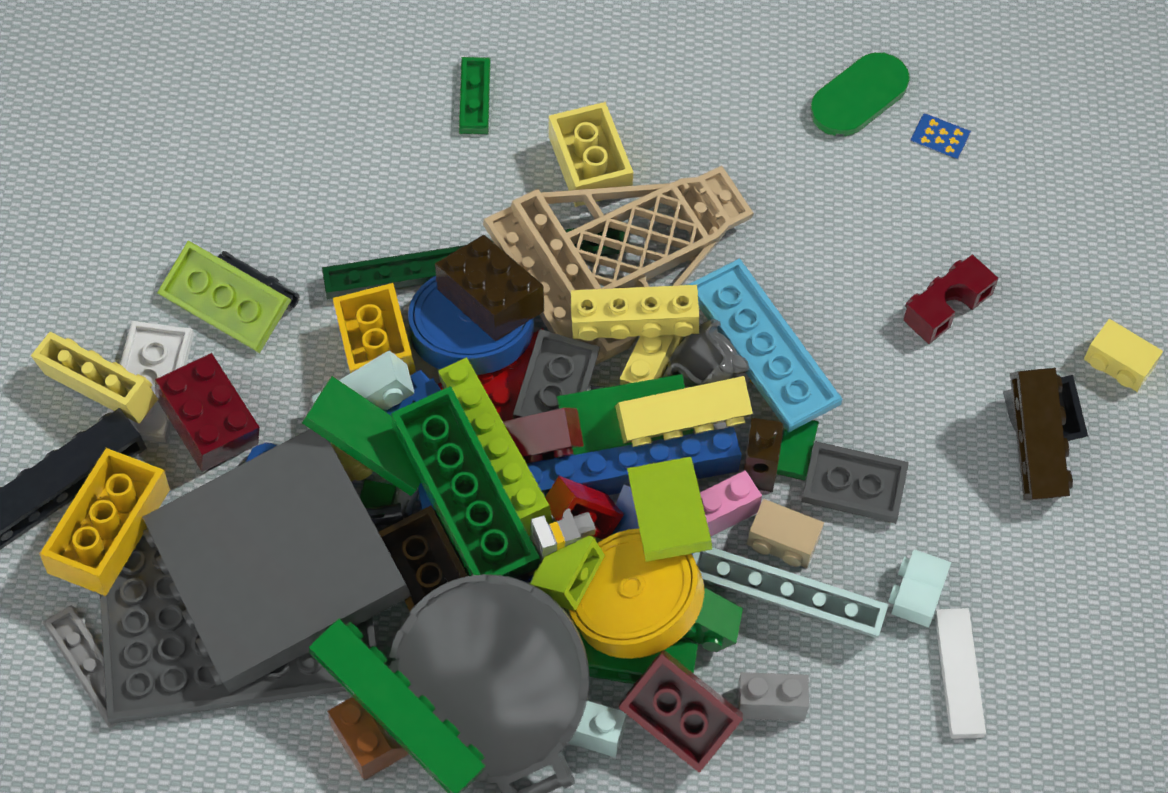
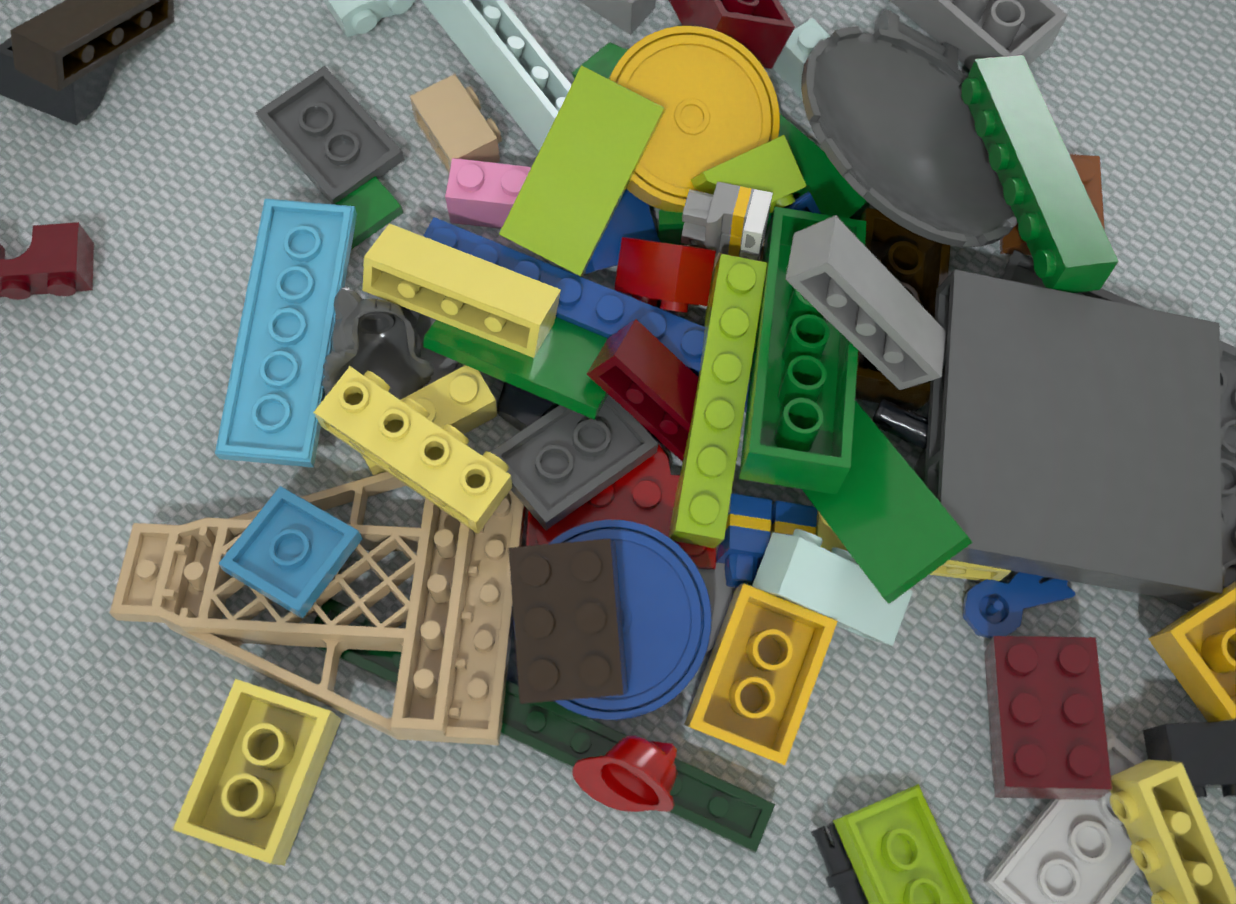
camera: 145 degrees left, 10 degrees up
(404, 252) = (631, 775): none -> red piece
(439, 503) = (866, 303): none -> light grey brick
(656, 235) = (291, 551): none -> dark azure plate
(764, 448) = (400, 202): dark brown torso -> none

